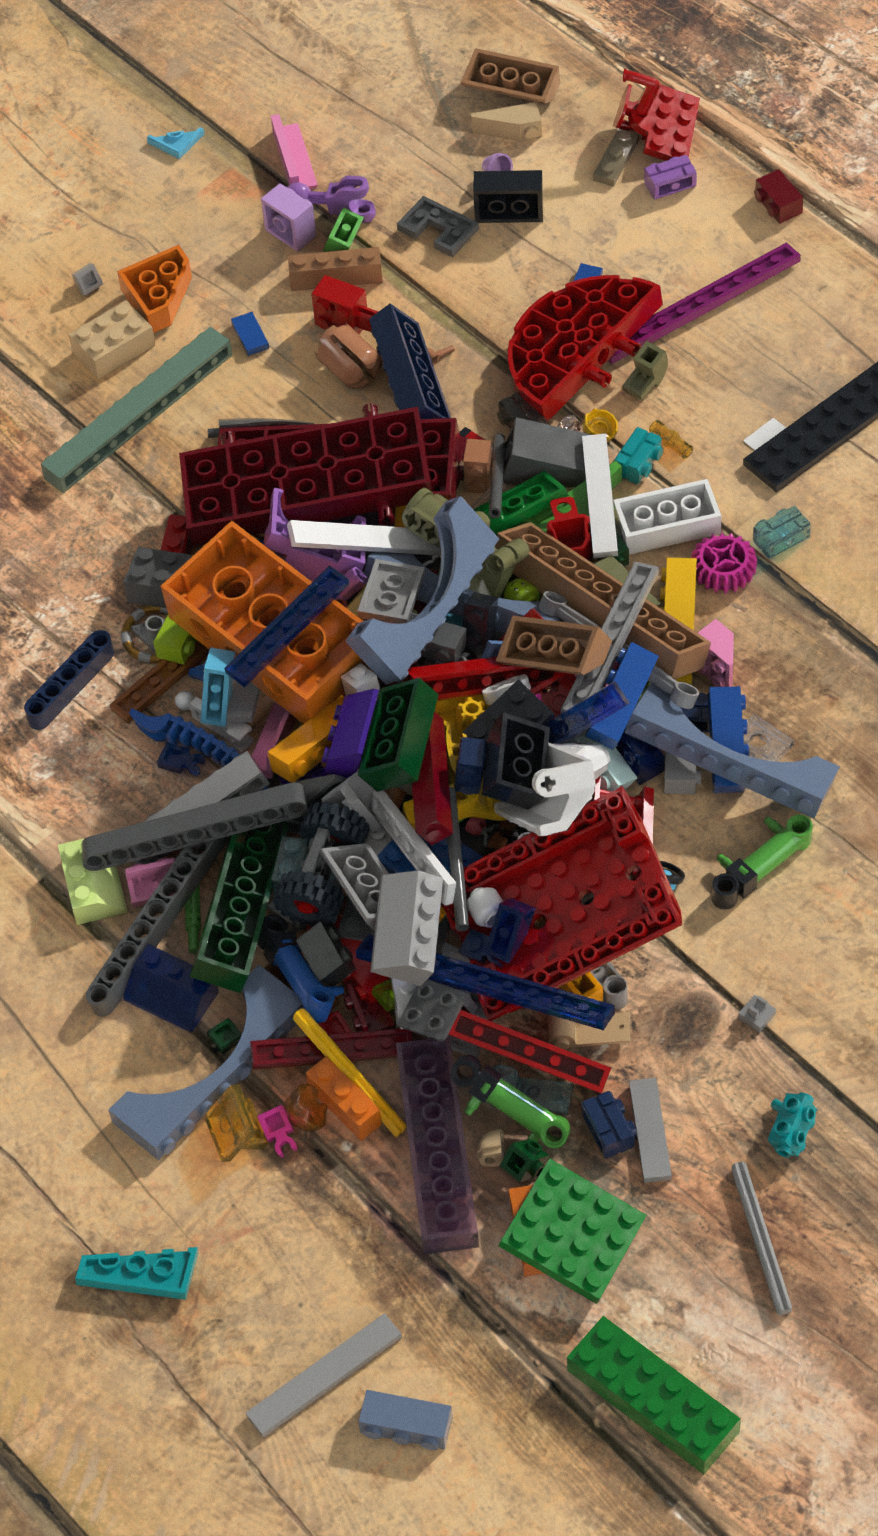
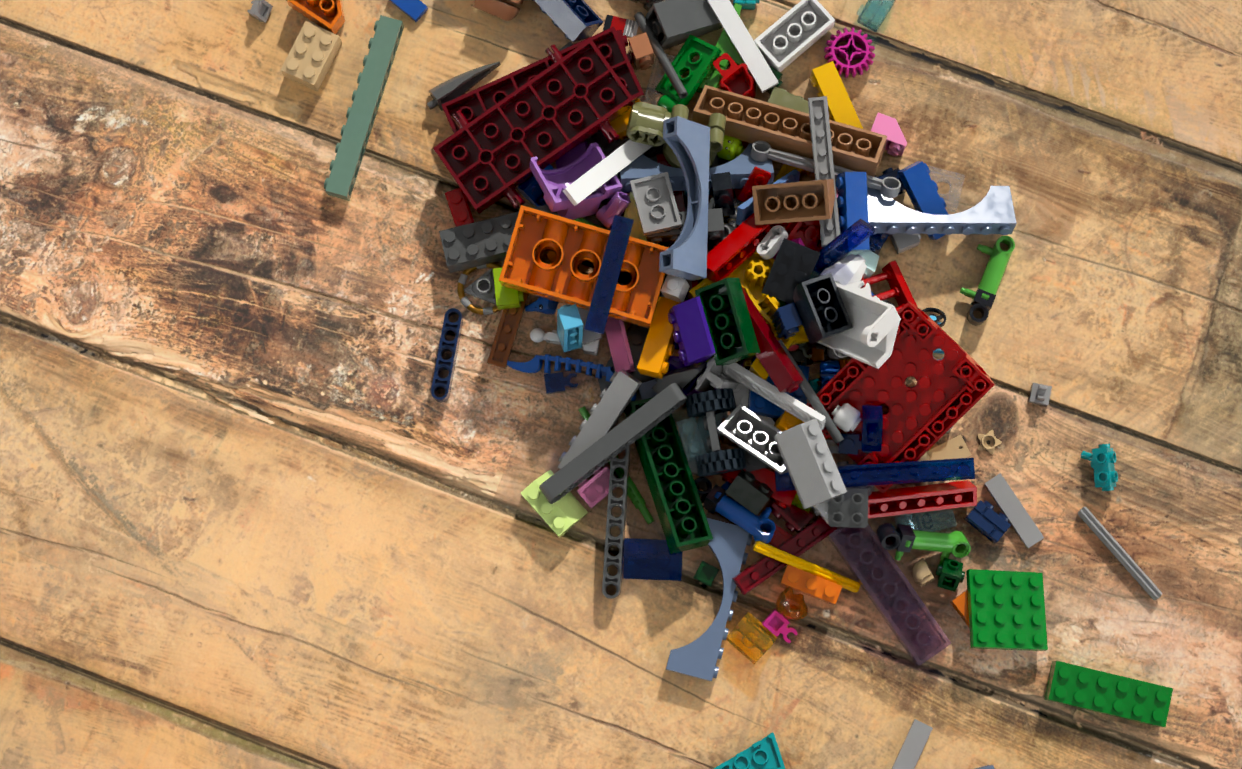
camera: 25 degrees left, 25 degrees up
(658, 1034) = (988, 437): none -> tan plate

